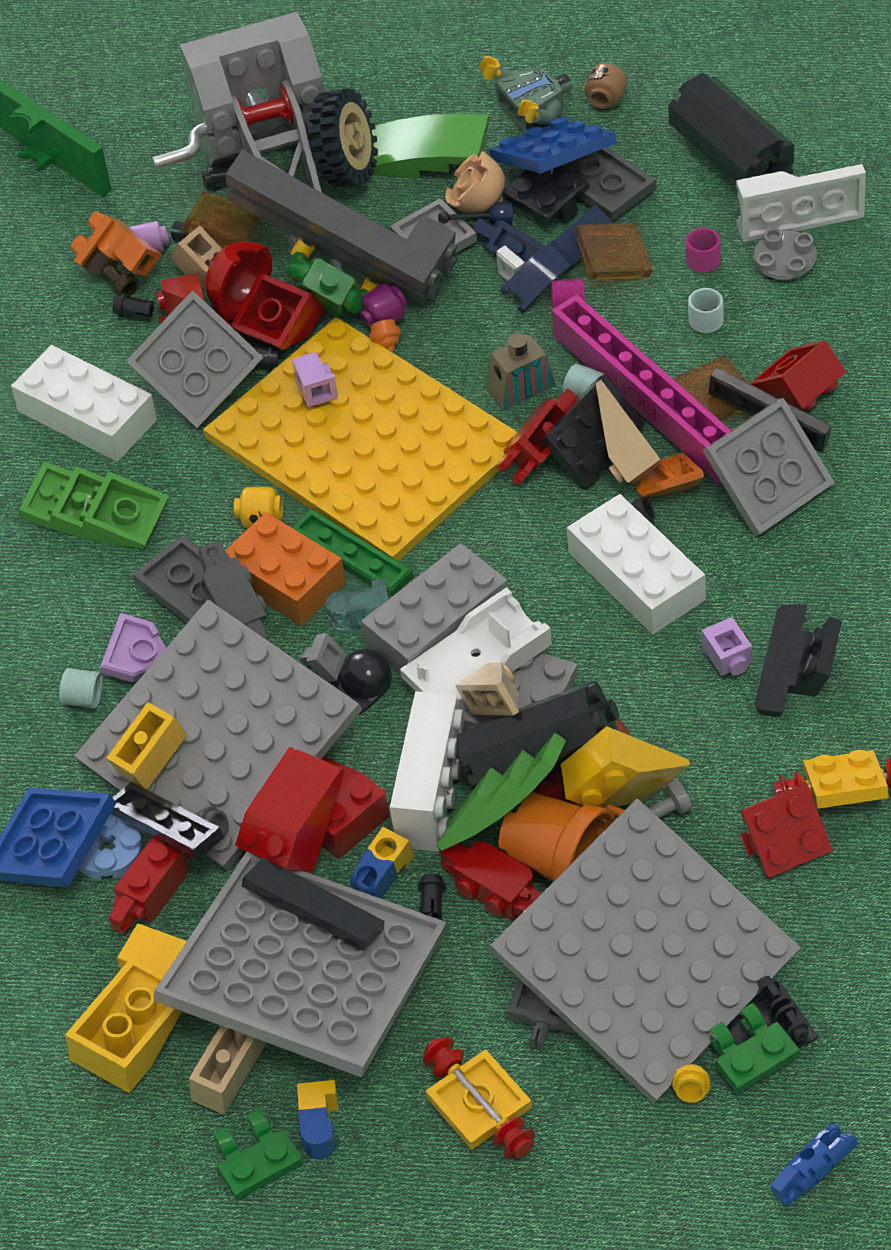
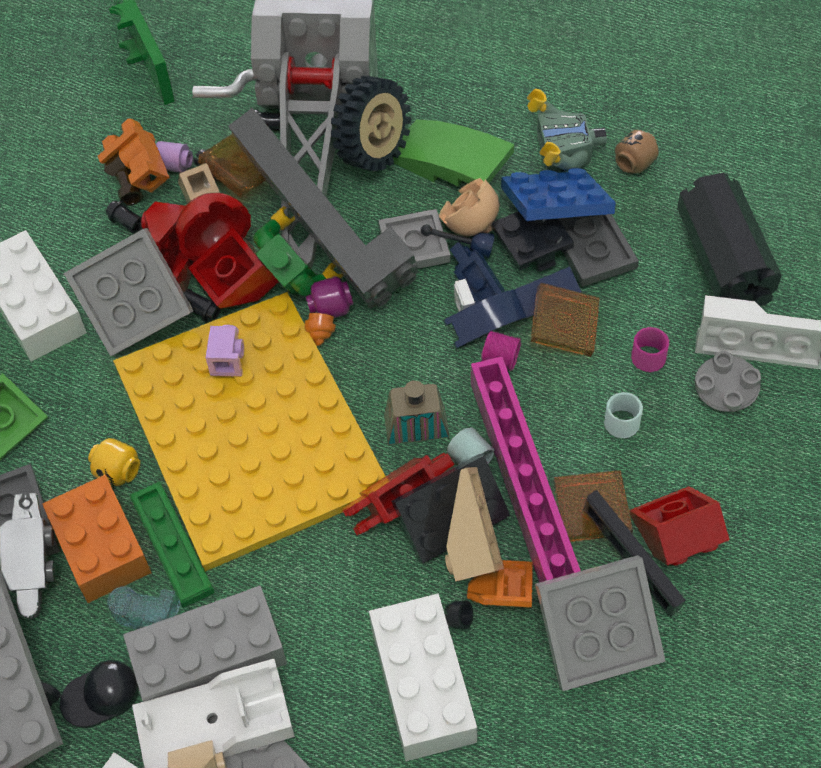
camera: 20 degrees right, 5 degrees up
(324, 657) = (78, 655): light grey tile -> none

